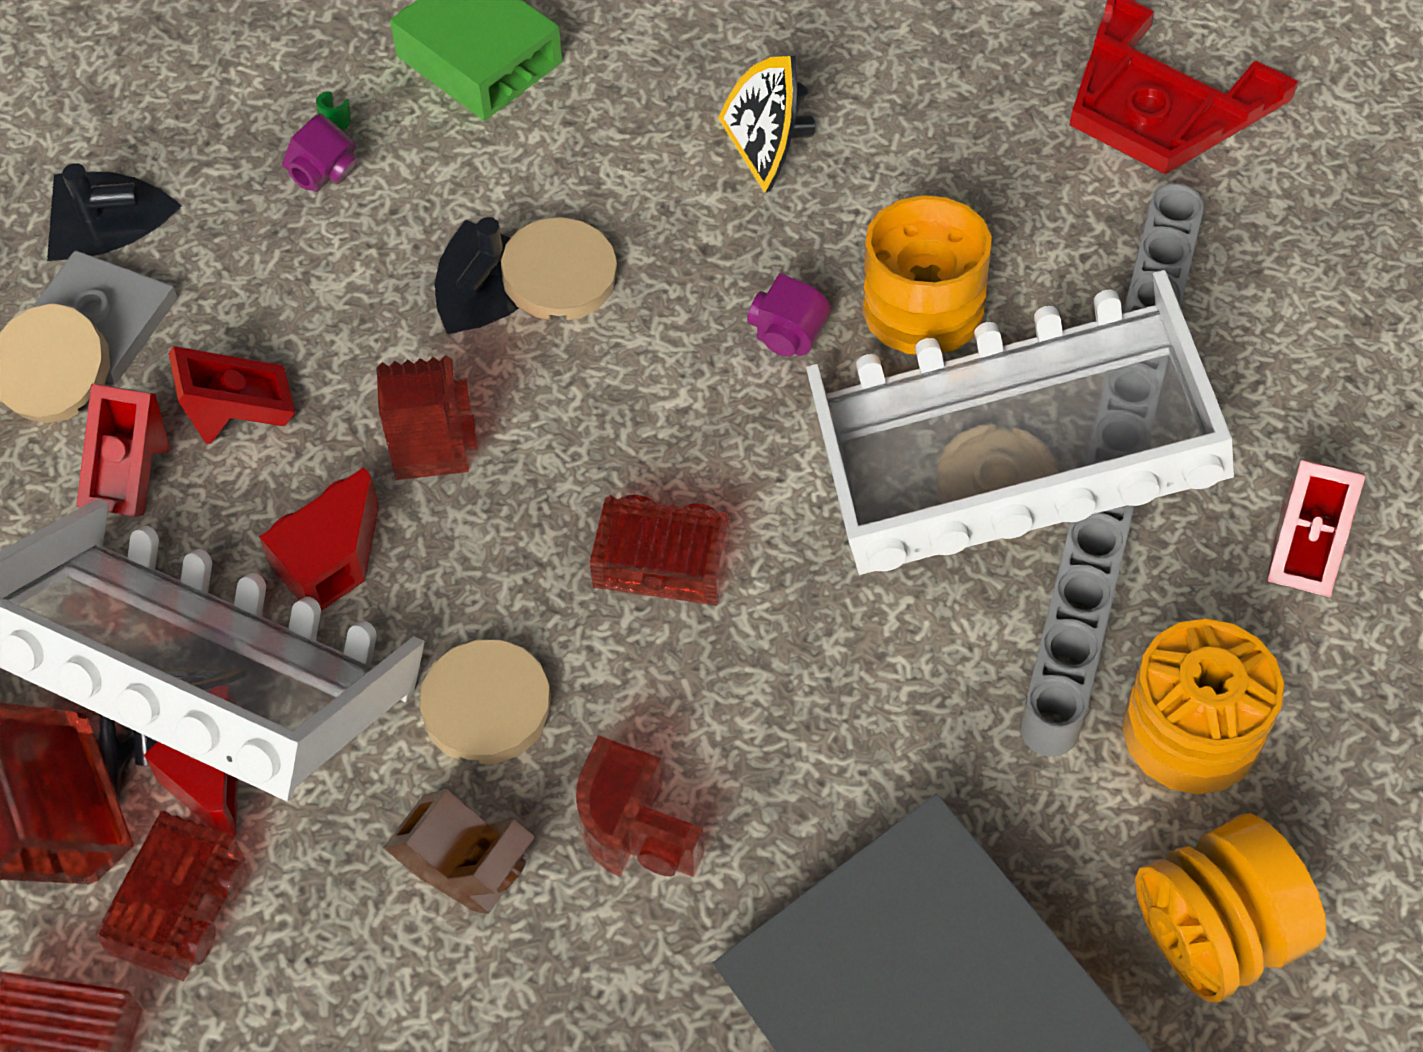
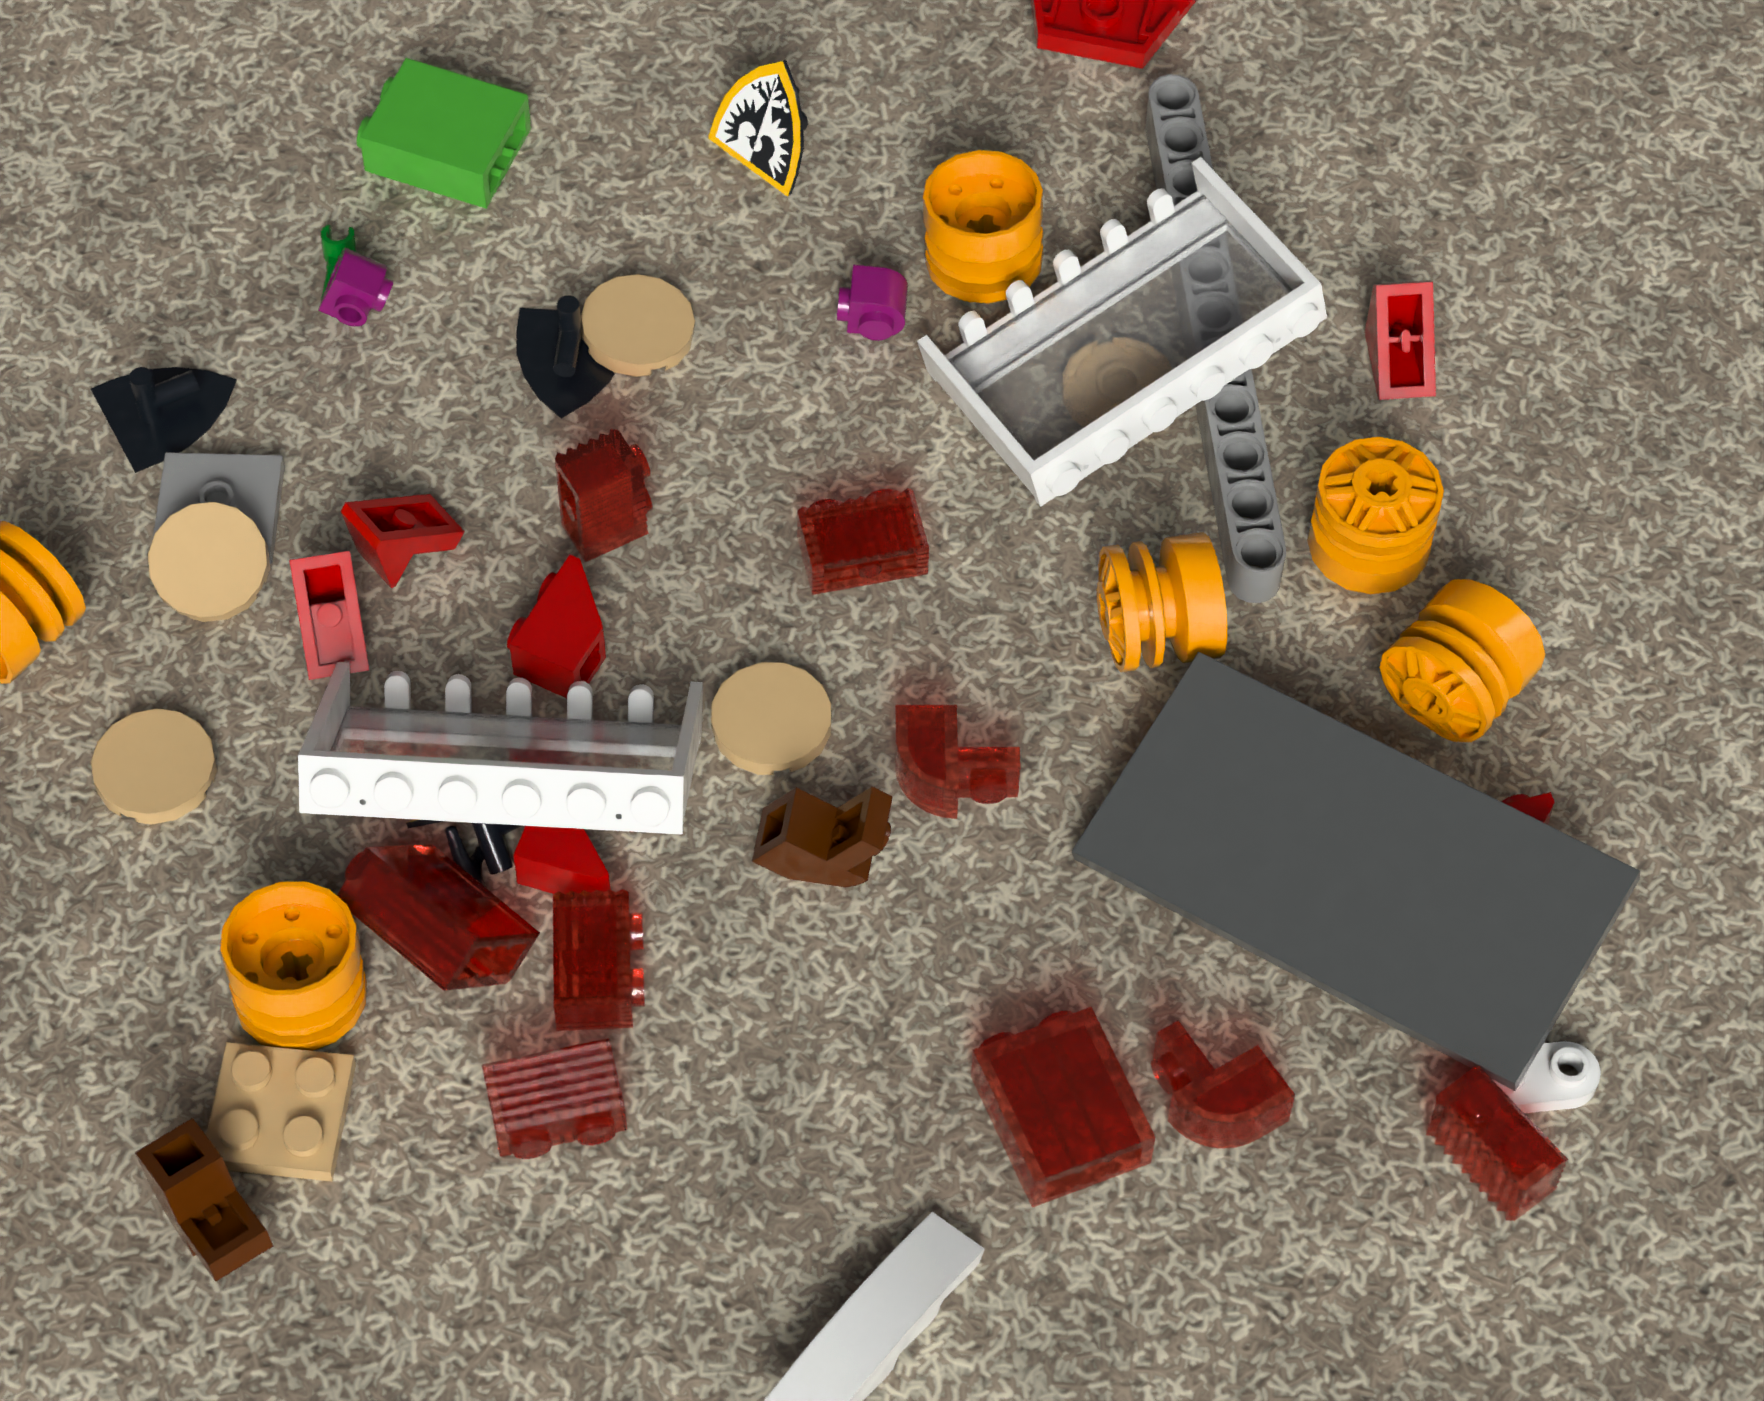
camera: 25 degrees left, 0 degrees up
(925, 722) = (1174, 601): none -> light orange wheel

